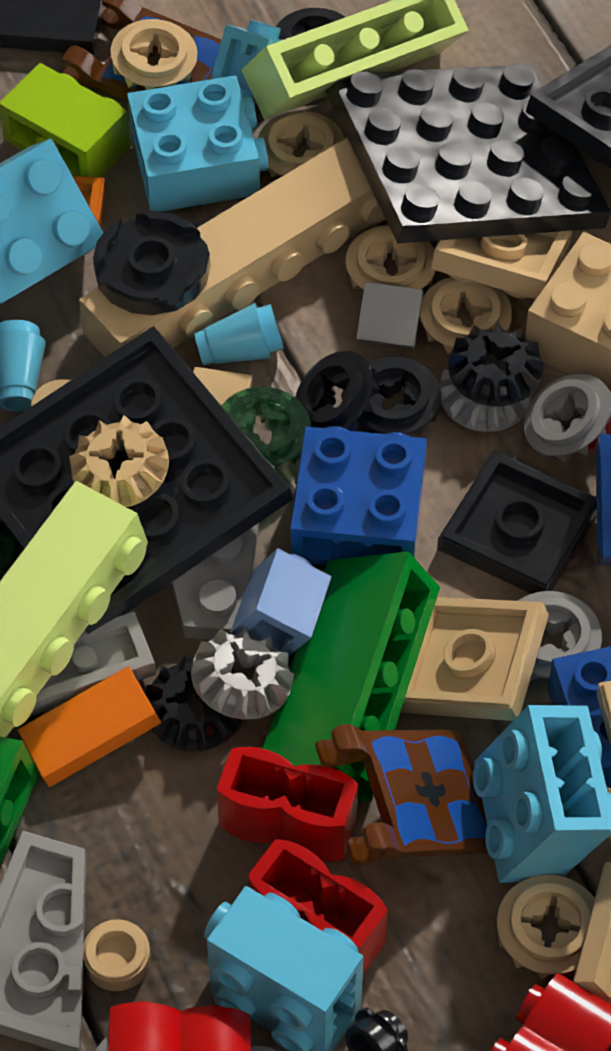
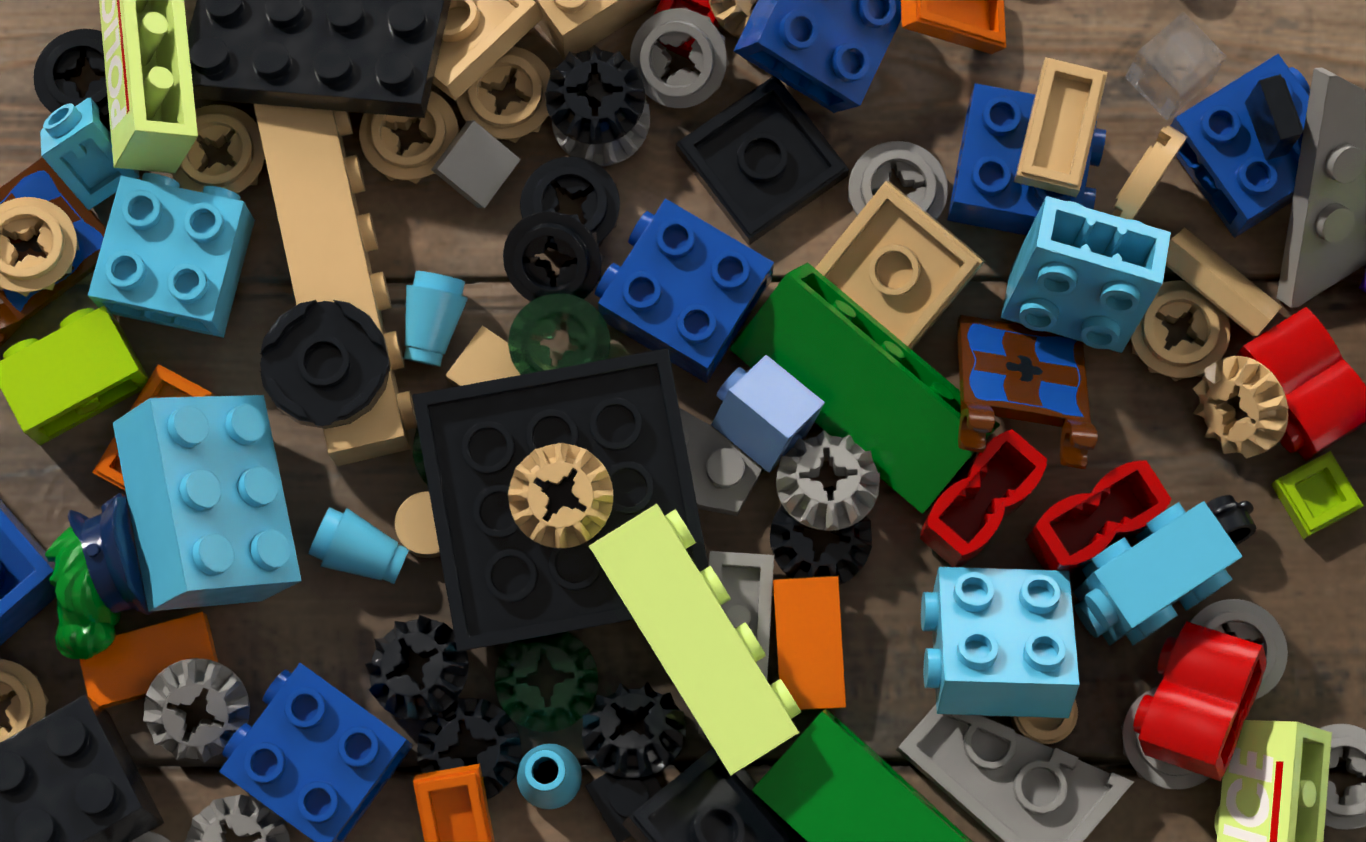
camera: 65 degrees left, 20 degrees up
(153, 866) = (1001, 642): none -> medium azure brick
(496, 998) = (1259, 397): none -> tan gear

